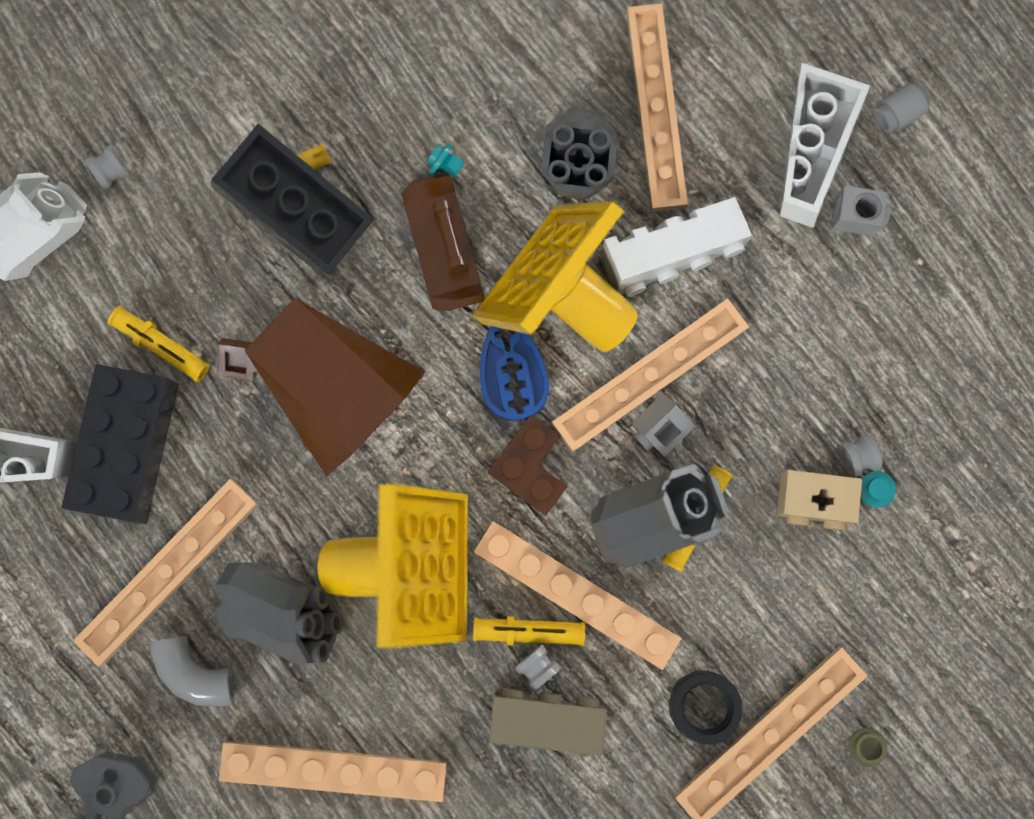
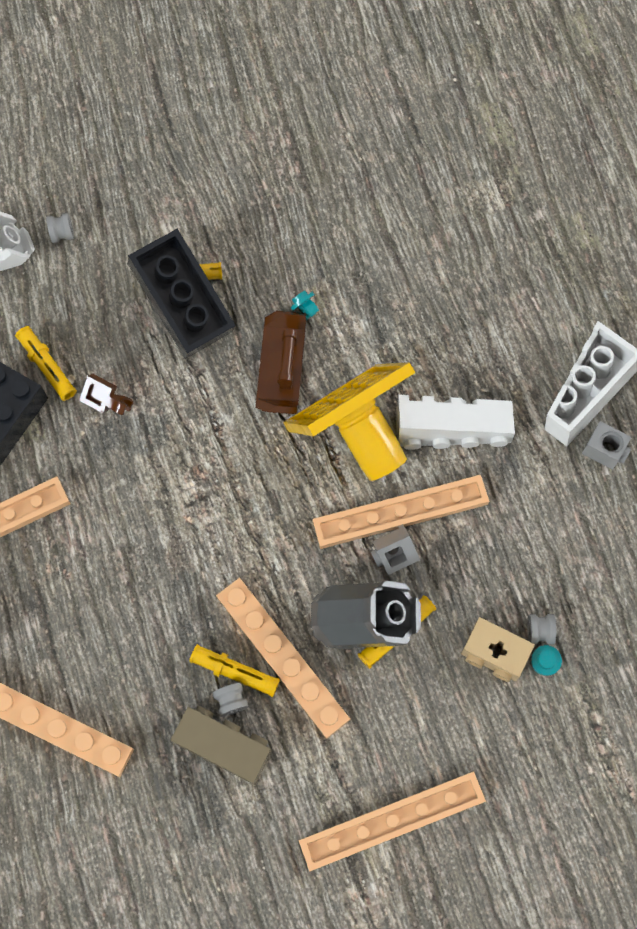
camera: 20 degrees right, 10 degrees down
(277, 612) = (51, 584): dark grey brick -> none
(329, 380) = (158, 430): reddish brown wedge -> none
(411, 567) = (164, 584): yellow piece -> none
(493, 381) = (312, 479): blue piece -> none
(520, 469) = (276, 548): reddish brown plate -> none
(579, 153) = (405, 330): dark grey brick -> none
(656, 108) = (478, 320): light nougat plate -> none
(734, 707) = (372, 774): black tyre -> none
(868, 747) = (467, 860): olive plate -> none

